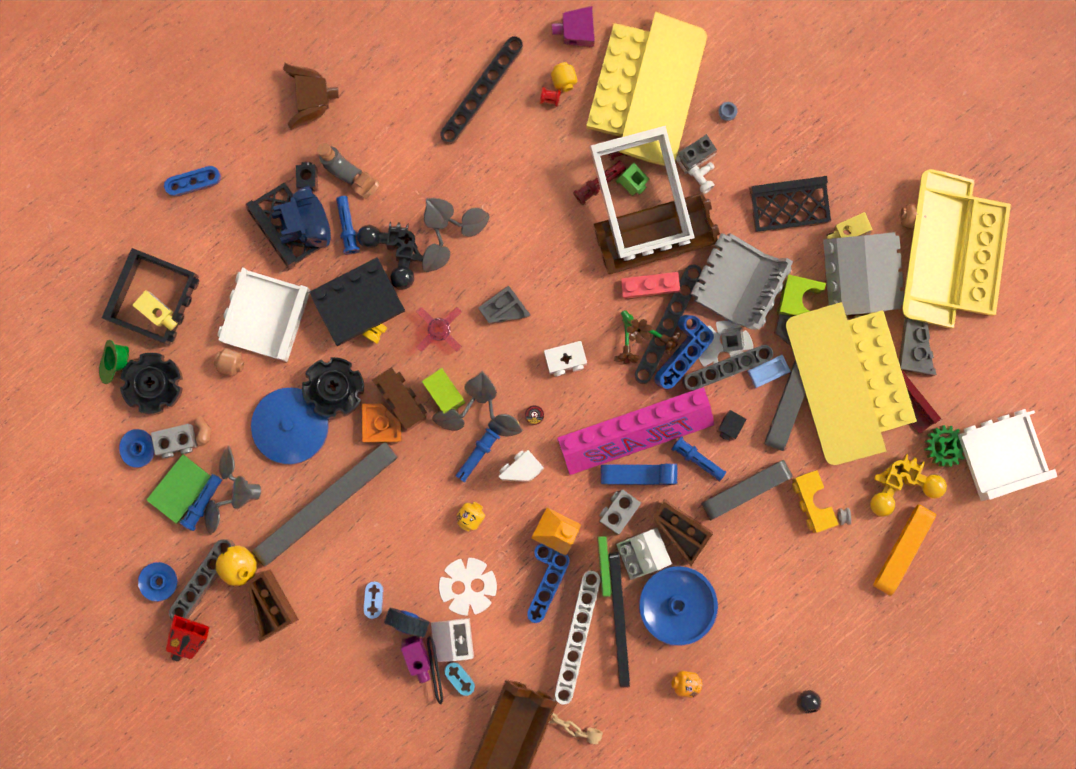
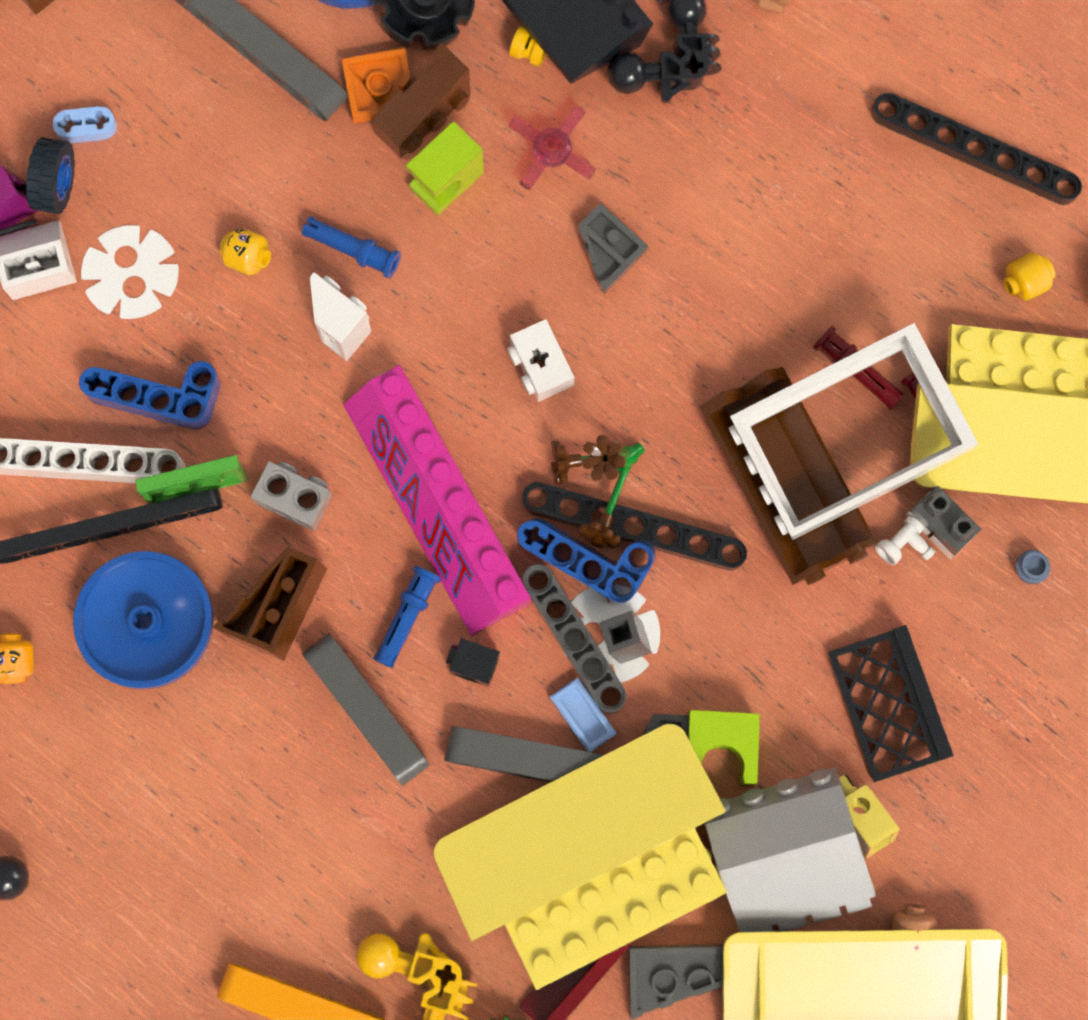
camera: 75 degrees right, 5 degrees down
(436, 216) = (744, 90): dark grey plant -> none
(482, 390) = (455, 233): dark grey plant -> none
(534, 415) = (435, 328): tile -> none
(550, 96) = (989, 260): red bush -> none
(556, 531) = (241, 394): light orange slope -> none
(633, 180) = (884, 419): bright green brick -> none
(639, 474) = (361, 517): blue beam -> none
(644, 553) = (226, 549): white slope -> none
(650, 285) = (695, 483): coral plate -> none
(740, 282) = (732, 634): light grey hinge -> none
(806, 487) = (334, 843): yellow arch -> none
(844, 516) = (346, 890): light grey bush -> none

